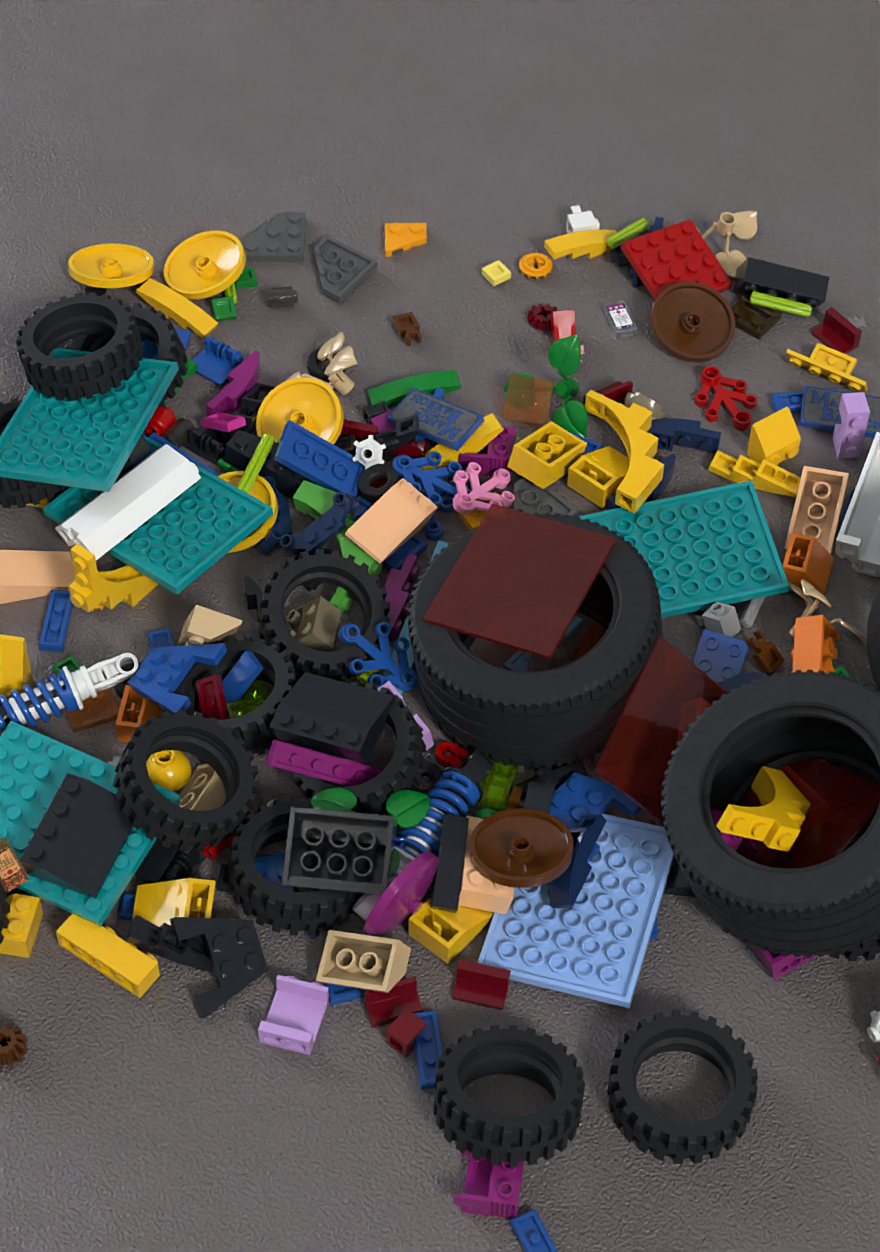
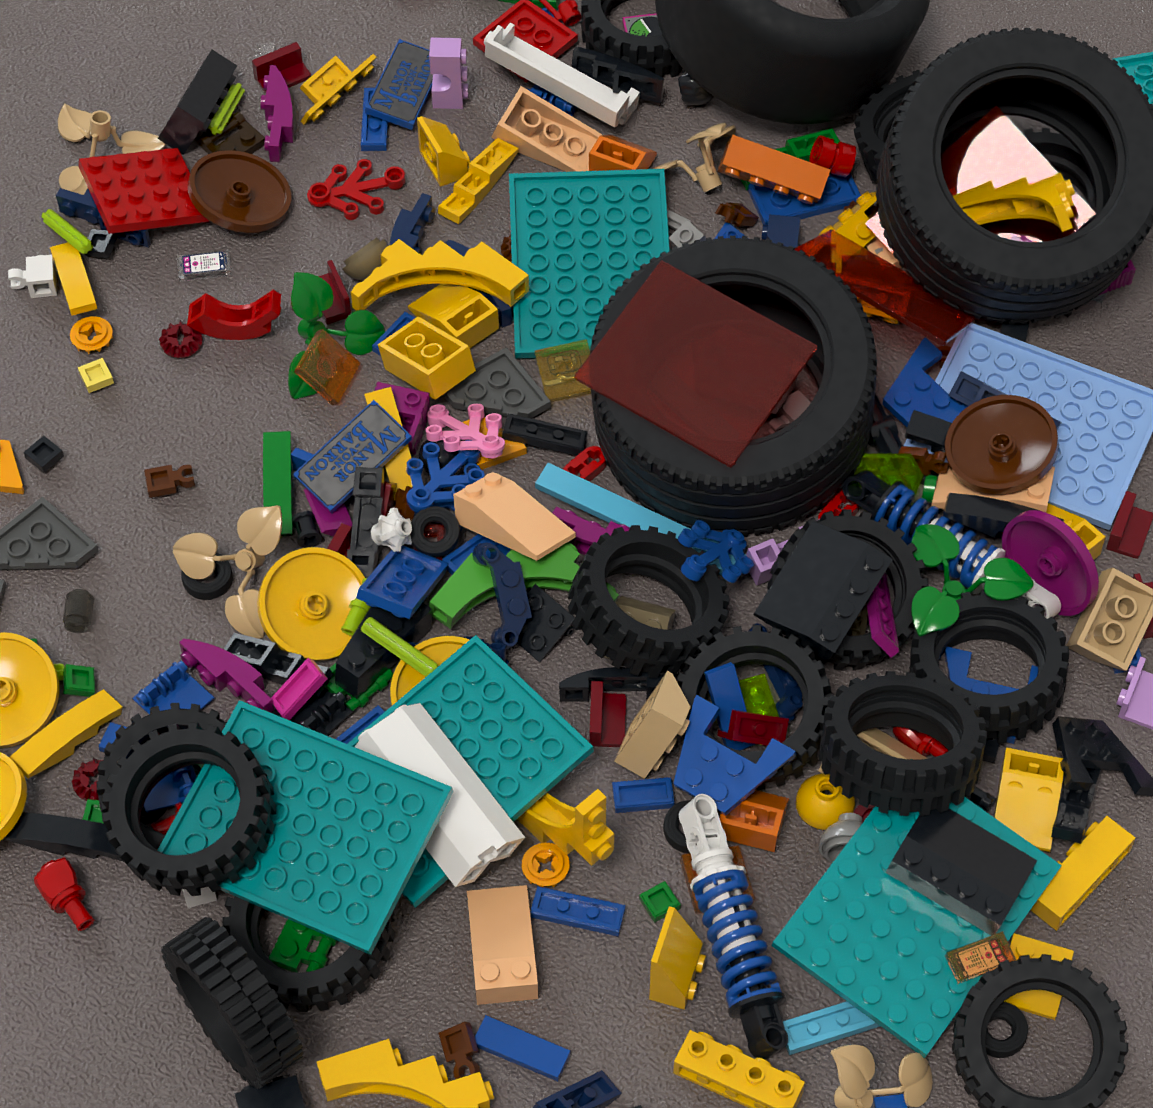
camera: 80 degrees left, 5 degrees up
(239, 608) = (606, 717): none -> dark red panel
(339, 850) = (1001, 606): black slope -> none
(417, 257) = (43, 454): none -> black plate
(792, 336) = (277, 112): none -> magenta slope

